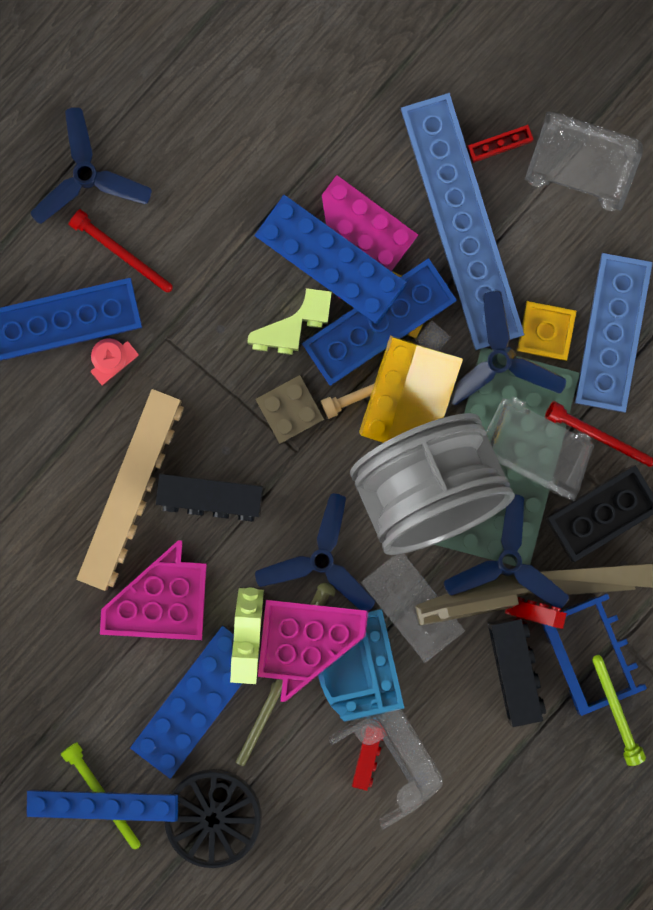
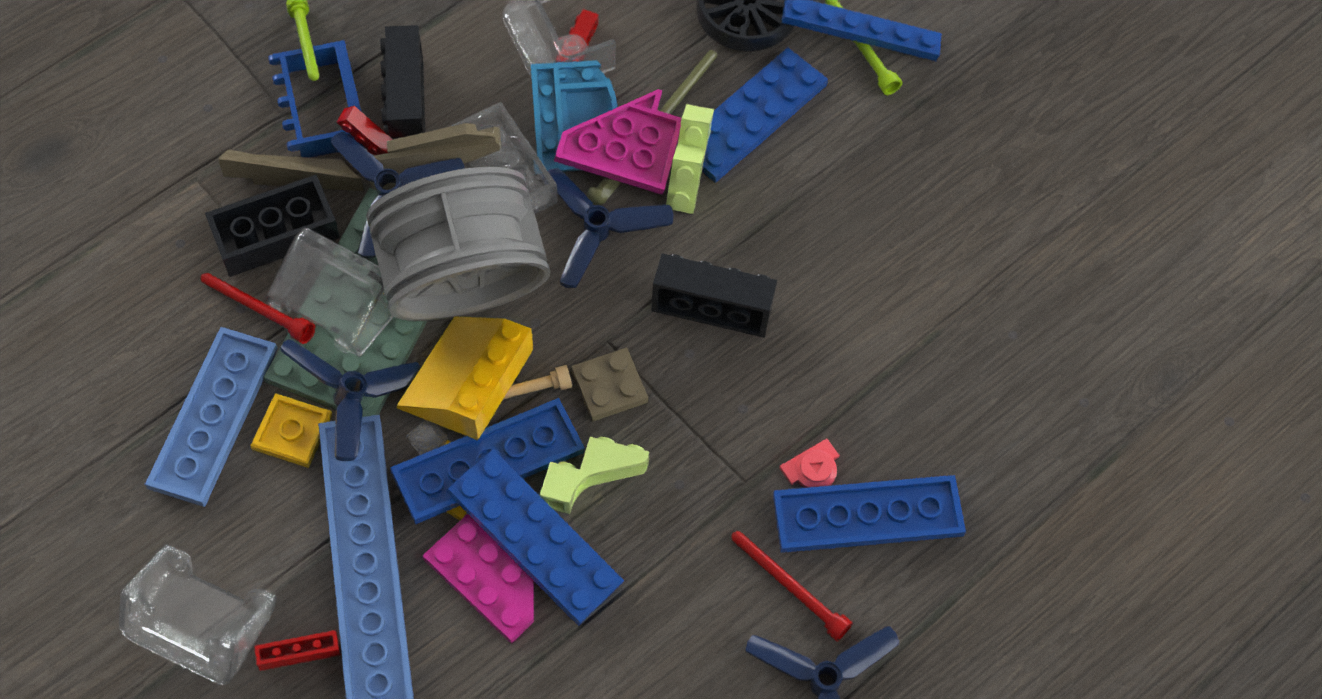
camera: 175 degrees left, 25 degrees down
(129, 490) = (802, 323): tan brick -> none
(161, 601) = (781, 208): dark pink wing -> none

